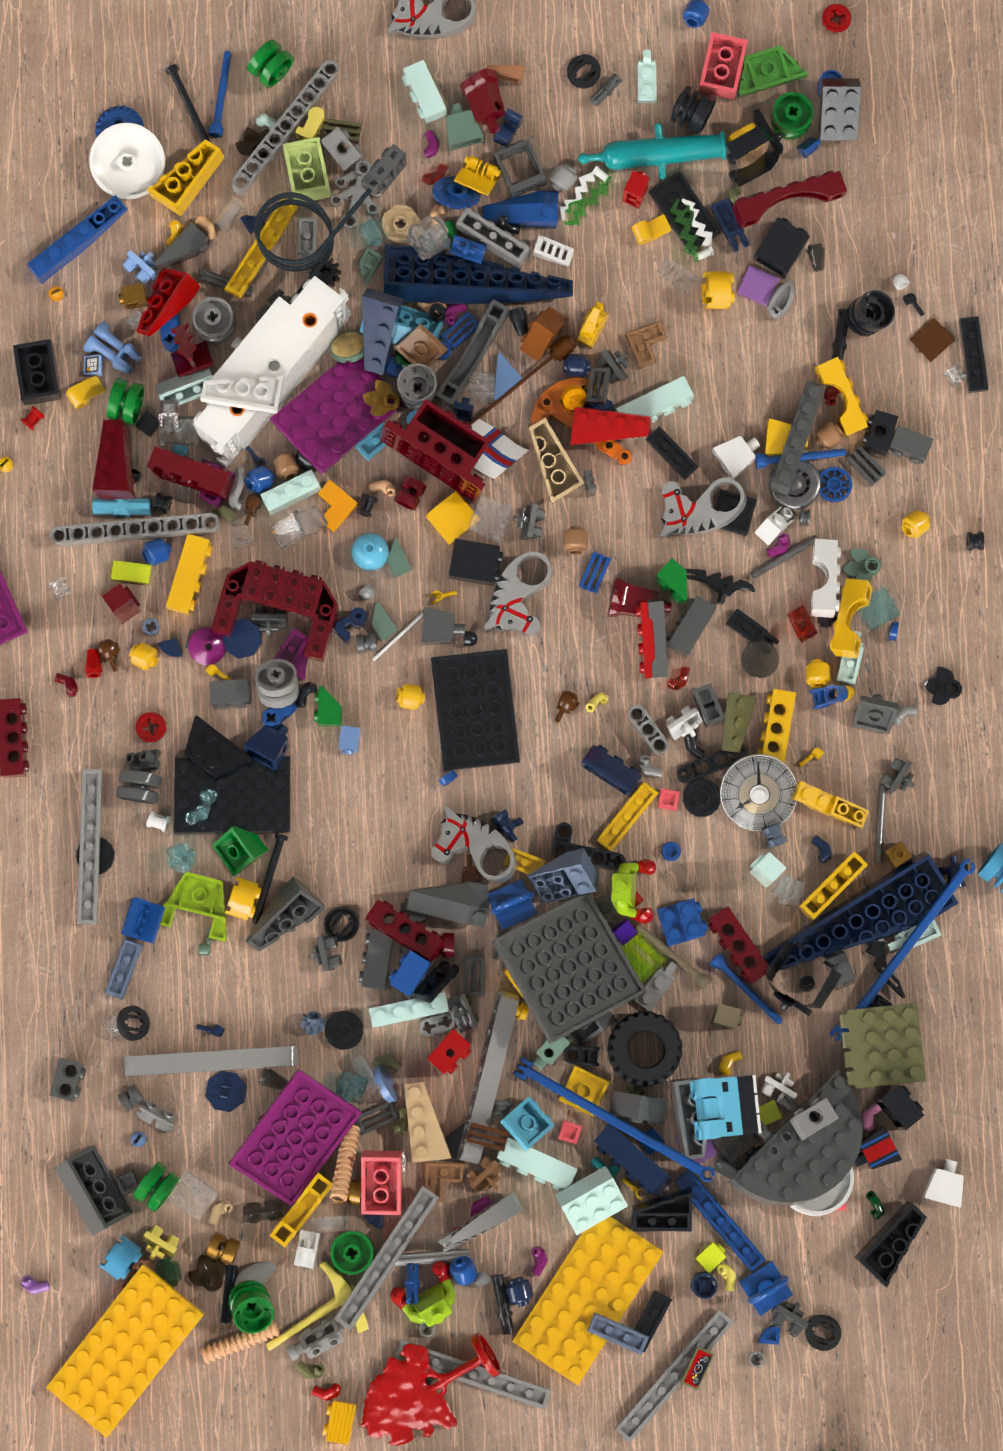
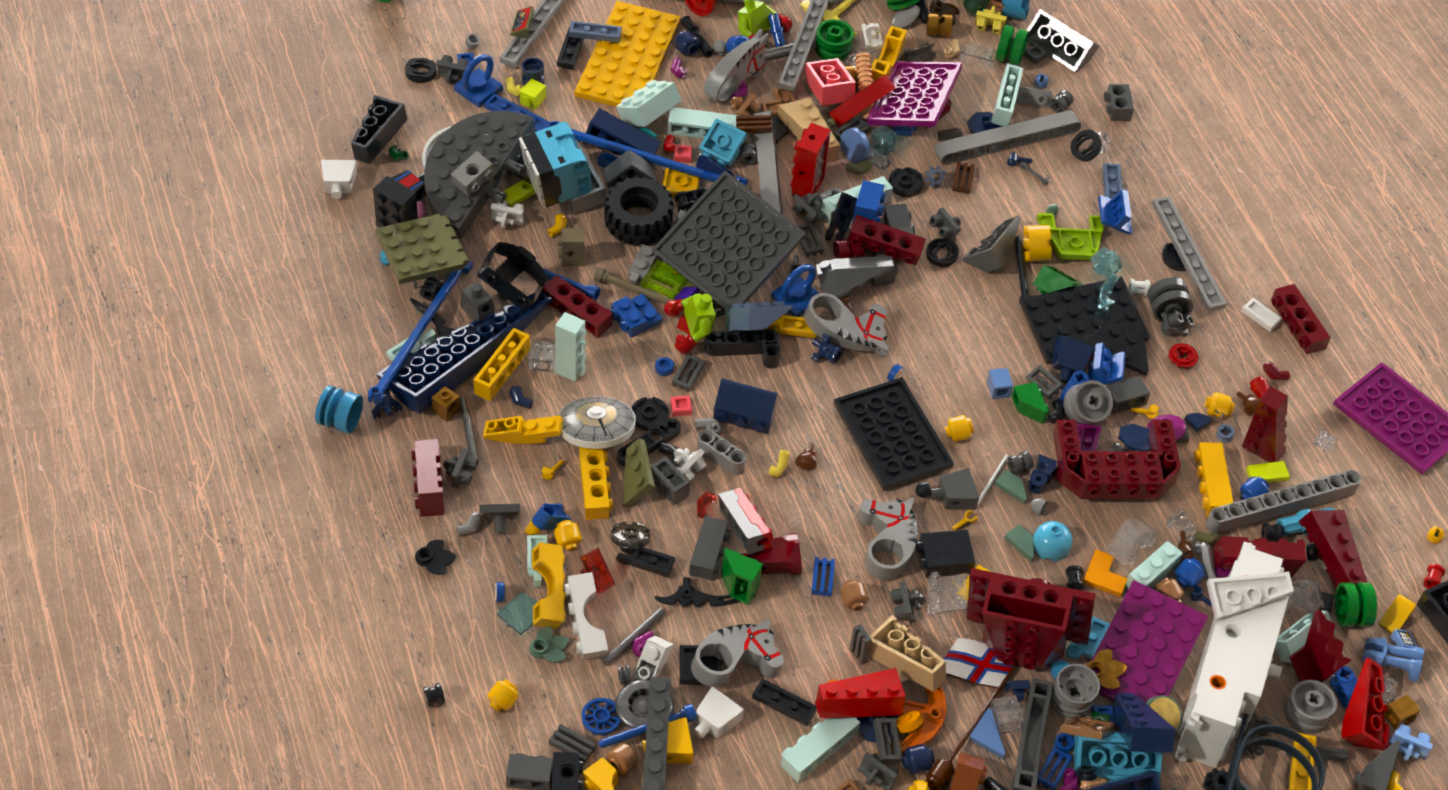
camera: 160 degrees right, 30 degrees down
(46, 758) = (1261, 314): none -> white tile
(190, 1115) = (1007, 95): none -> light aqua brick
(207, 1022) = (1023, 165): none -> dark grey hinge
(239, 723) = (1106, 367): none -> blue bracket
(277, 1009) = (965, 167): none -> reddish brown tile
(315, 740) = (1053, 390): none -> dark grey tile
(353, 1141) = (862, 100): none -> red slope
(550, 1097) = (710, 165): none -> clear blue slope
(583, 1147) = (669, 145): none -> red arm
(627, 816) = (722, 369): yellow tile -> none
(639, 849) = (682, 384): none -> dark grey tile
(664, 1213) = (581, 107): black wedge -> none
(774, 836) = (568, 393): sand blue wheel -> none
(932, 771) = (428, 478): none -> wedge

